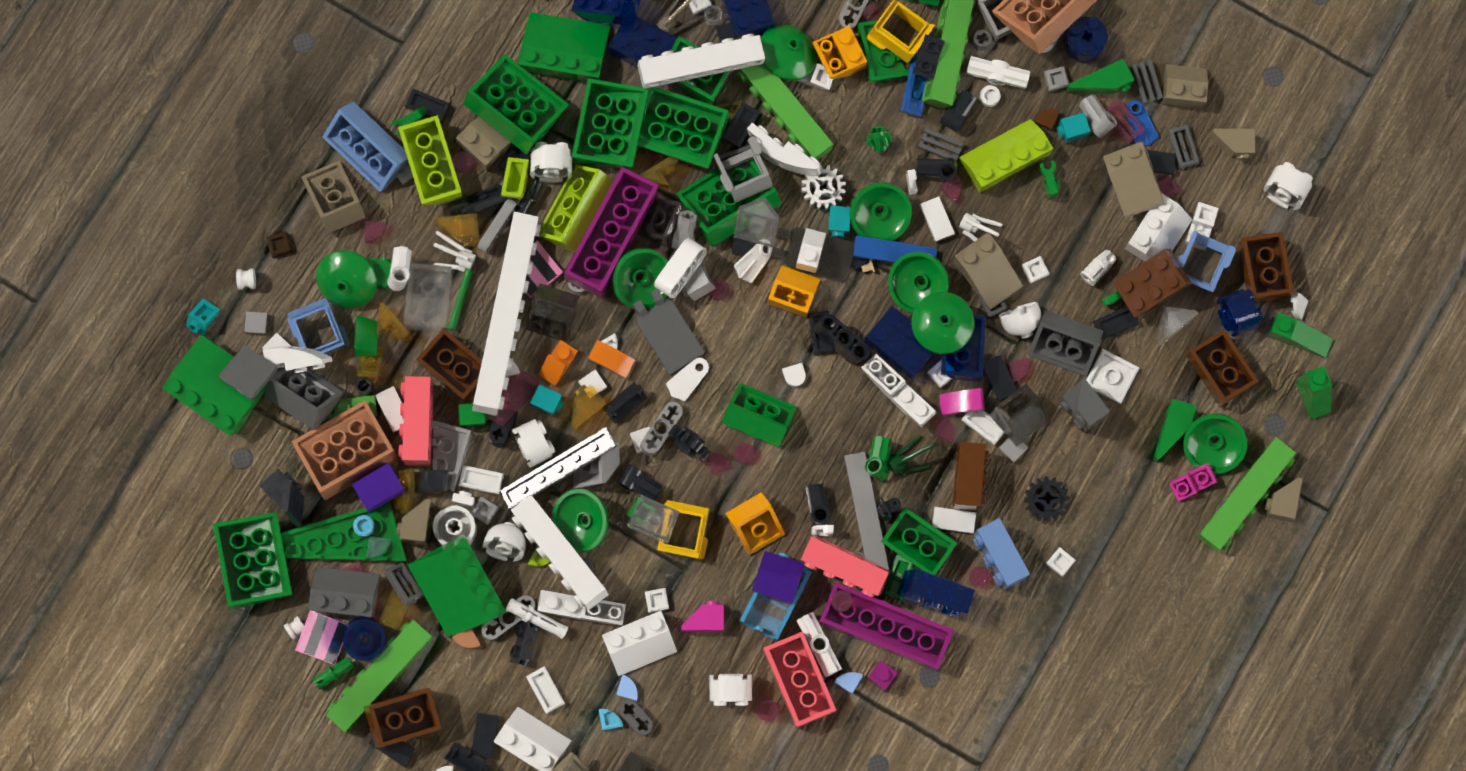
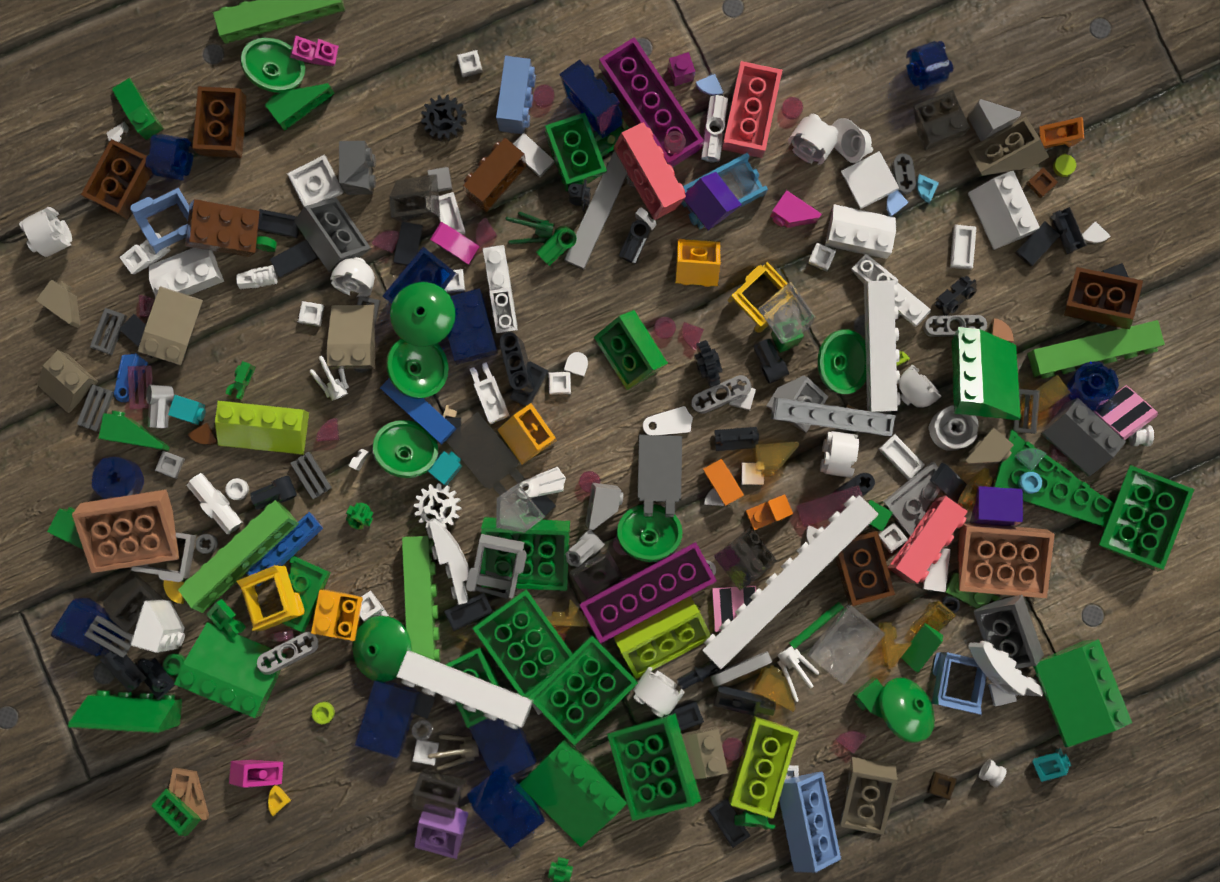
camera: 140 degrees left, 5 degrees up
(248, 372) = (1051, 682): dark grey tile -> none
(256, 323) = (1007, 727): light grey tile -> none
(286, 494) = (1084, 551): black slope -> none
(333, 672) = (1133, 378): green axle -> none
(399, 267) = (854, 688): white piece -> none
(445, 410) = (892, 537): none -> white tile
(463, 499) = (928, 448): white plate -> none
(484, 511) = (916, 428): light grey tile -> none
(515, 178) = (699, 698): lime slope -> none
(528, 613) = (948, 324): white pin -> none
(547, 401) = (802, 484): teal brick -> none
(660, 691) = (870, 180): none -> white tile
(680, 268) = (611, 517): white beam -> none
(697, 712) = (852, 141): none -> white piece
(797, 350) = (559, 383): none -> white tile
(810, 250) = (487, 457): white slope -> none
(846, 302) = (490, 395): none -> white hinge
(928, 57) = (263, 555): black hinge -> none
(934, 168) = (330, 456): black piece -> none
(937, 219) = (361, 413): white tile -> none
(1082, 302) = (293, 259): none -> black tile
(1172, 321) = (233, 183): clear slope -> none
(1315, 392) = (157, 51): green slope -> none

